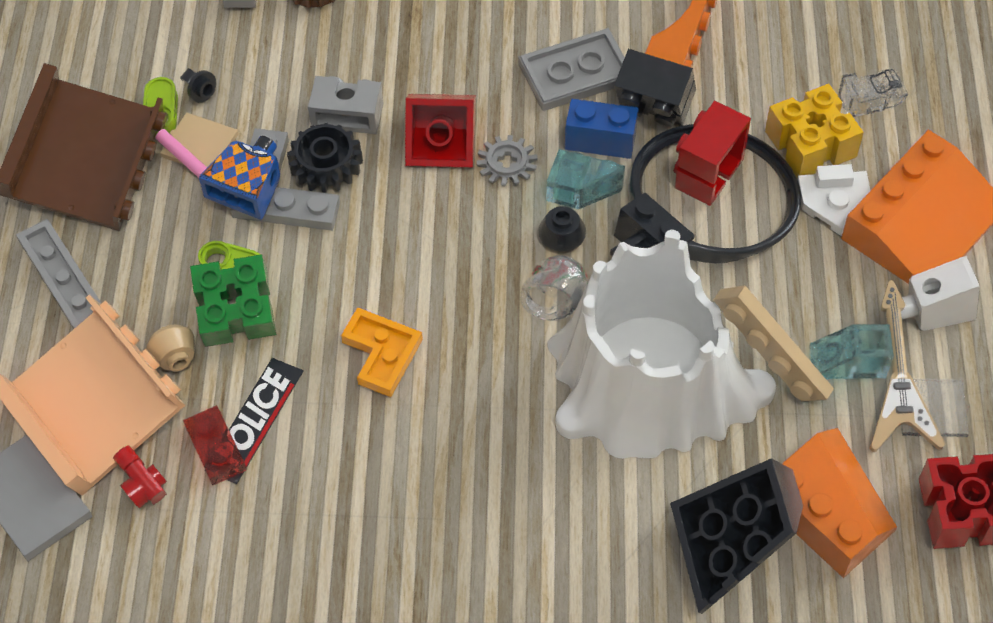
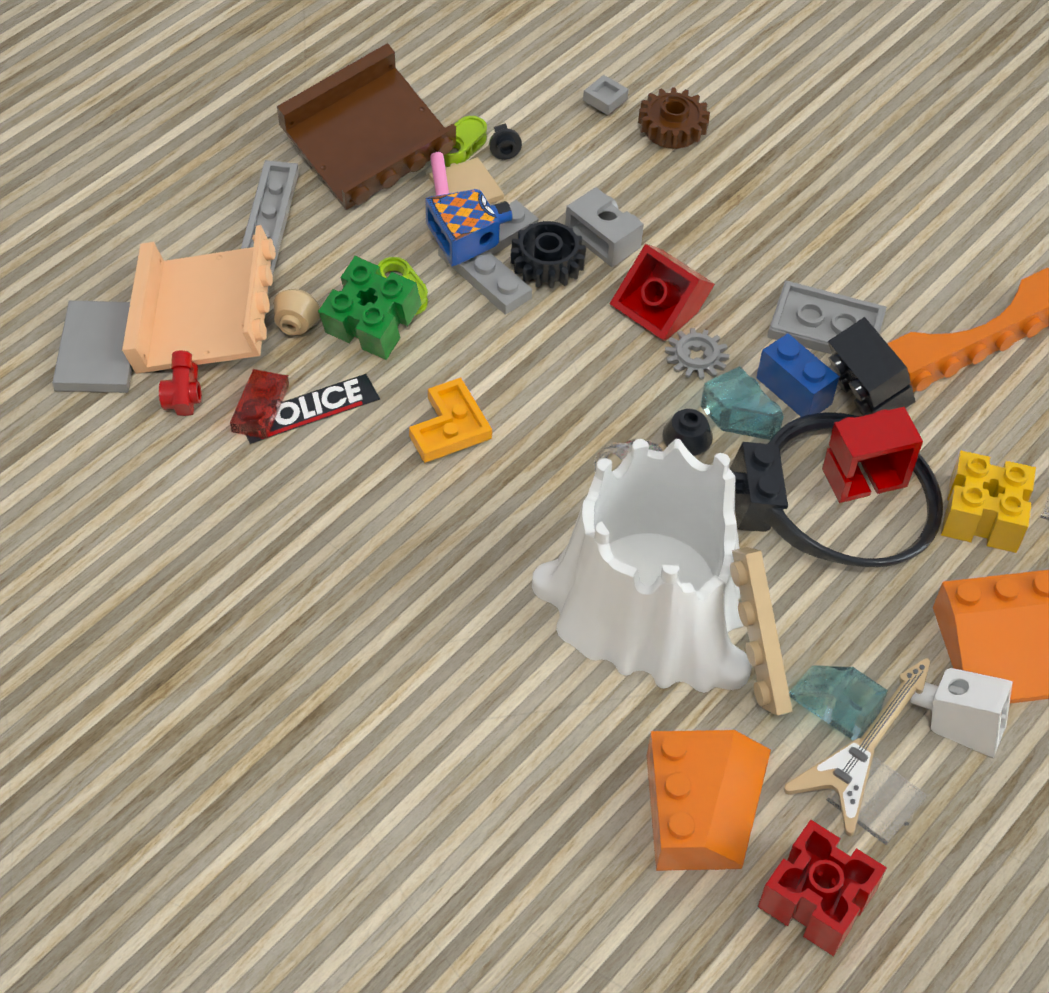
camera: 35 degrees right, 5 degrees down
(736, 527) = (586, 742): black wedge -> none
(833, 193) = (957, 558): white plate -> none

